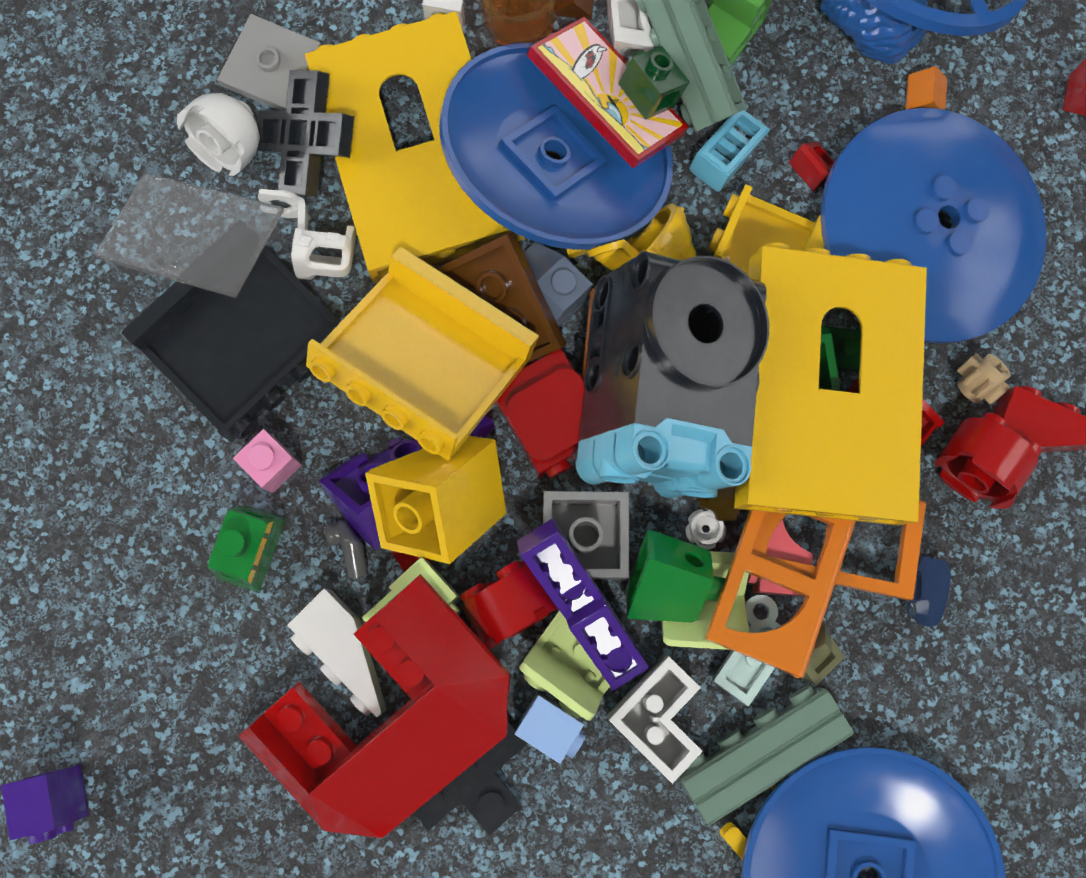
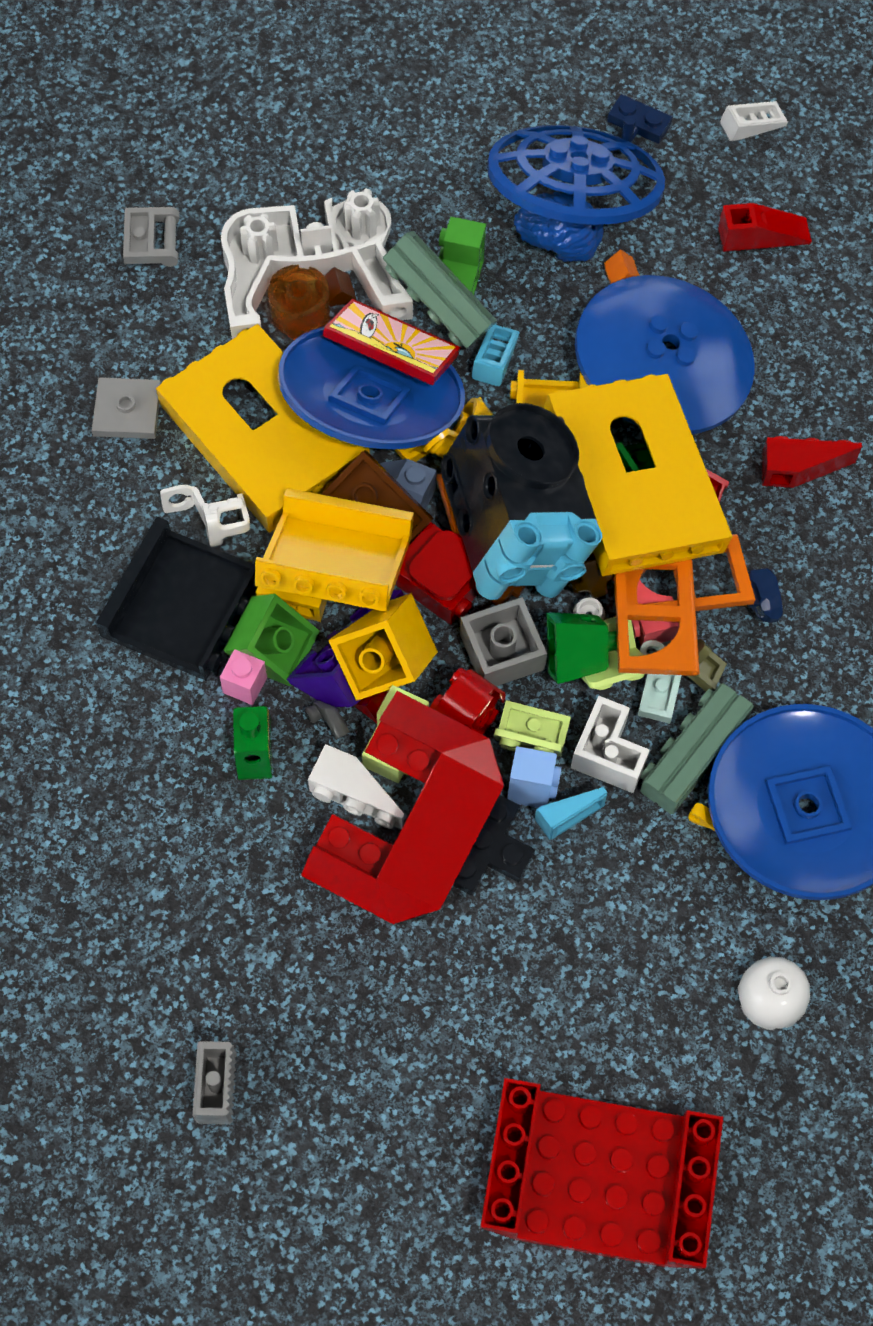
camera: 20 degrees left, 15 degrees down
(44, 804) = (175, 966): dark purple piece -> none
(190, 234) = (119, 539): clear container -> none
(220, 131) = (112, 464): white cylinder -> none
(304, 132) = (179, 440): black plate -> none
(319, 425) = (274, 635): none -> bright green slope
(579, 777) = (566, 813): none -> medium azure slope
(581, 604) = (521, 682): dark purple slope -> none
(653, 81) = (422, 323): dark green brick -> none
(812, 164) = (560, 345): red slope -> none
(983, 378) = (743, 443): tan gear -> none
(988, 461) = (768, 494): red brick -> none

